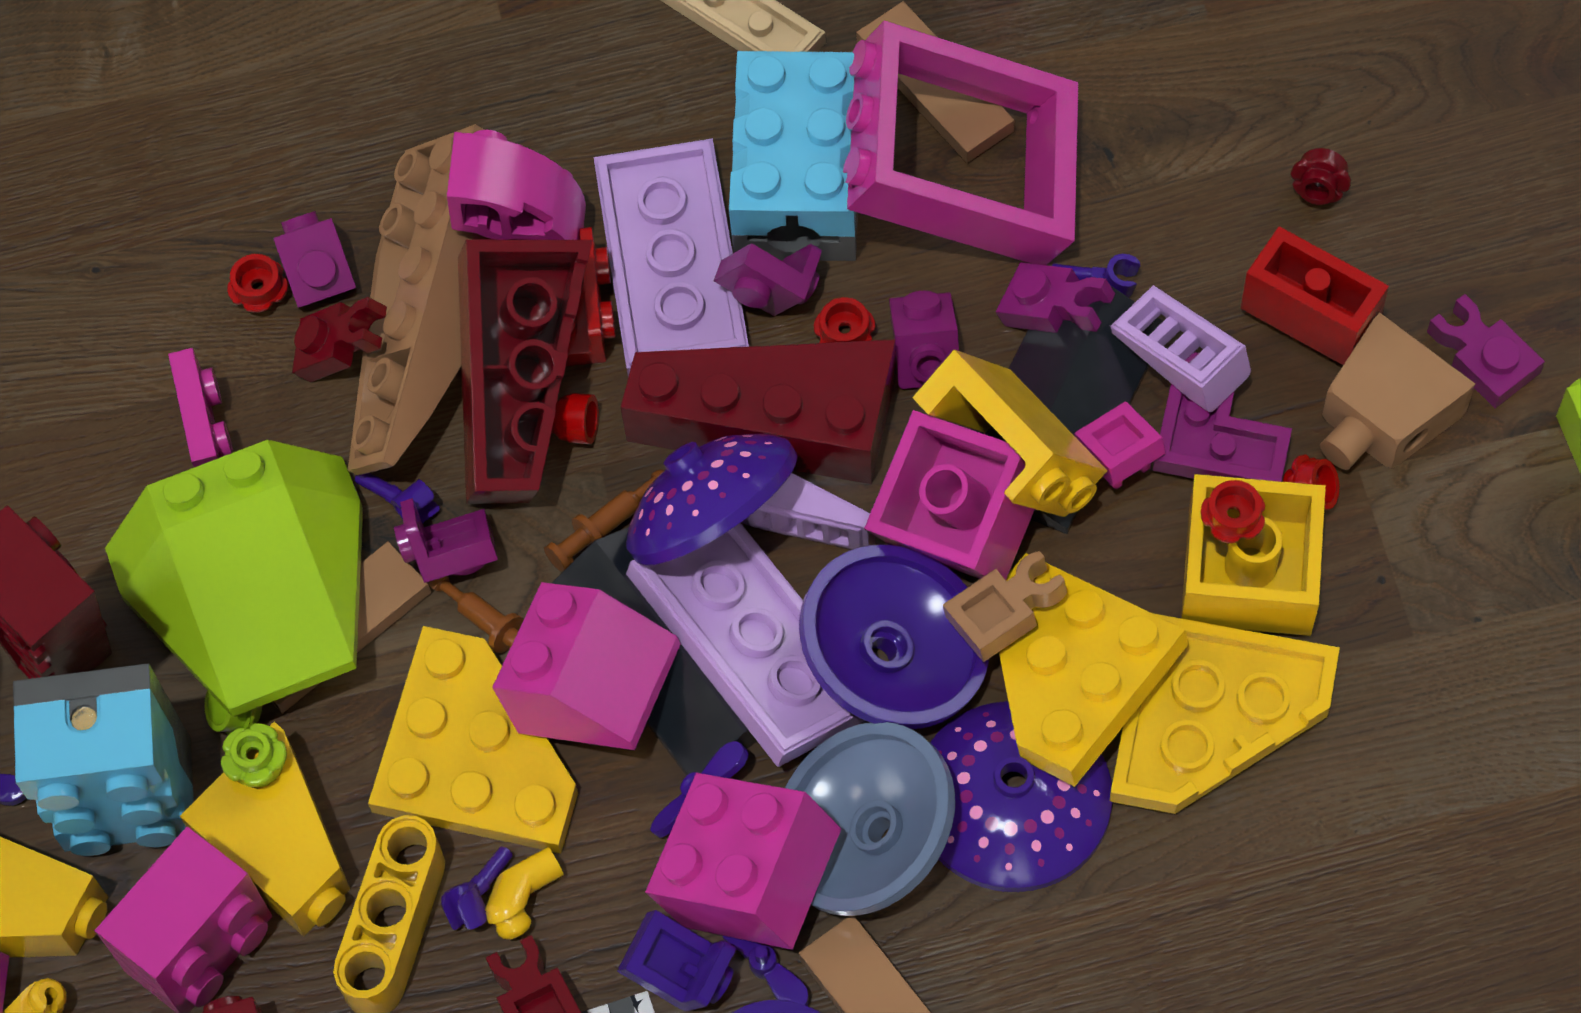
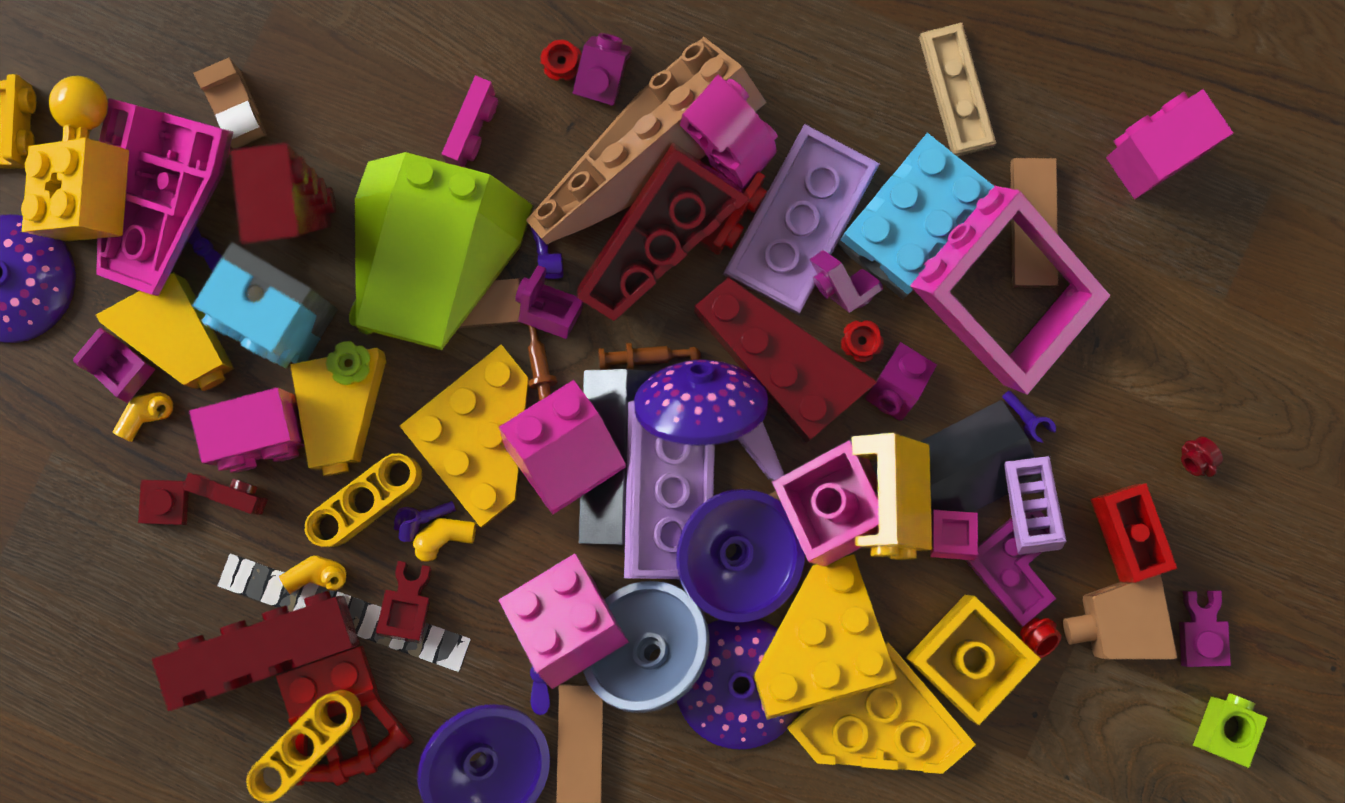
camera: 30 degrees right, 20 degrees up
(331, 336) = (576, 131): dark red plate -> none
(576, 418) = (674, 283): red hinge -> none
(677, 963) = (492, 644): dark purple bracket -> none
(724, 763) = (598, 553): dark purple piece -> none
(999, 611) = (803, 587): medium nougat plate -> none
(1047, 295) = (988, 412): magenta plate -> none
(1237, 496) = (987, 640): red plate -> none

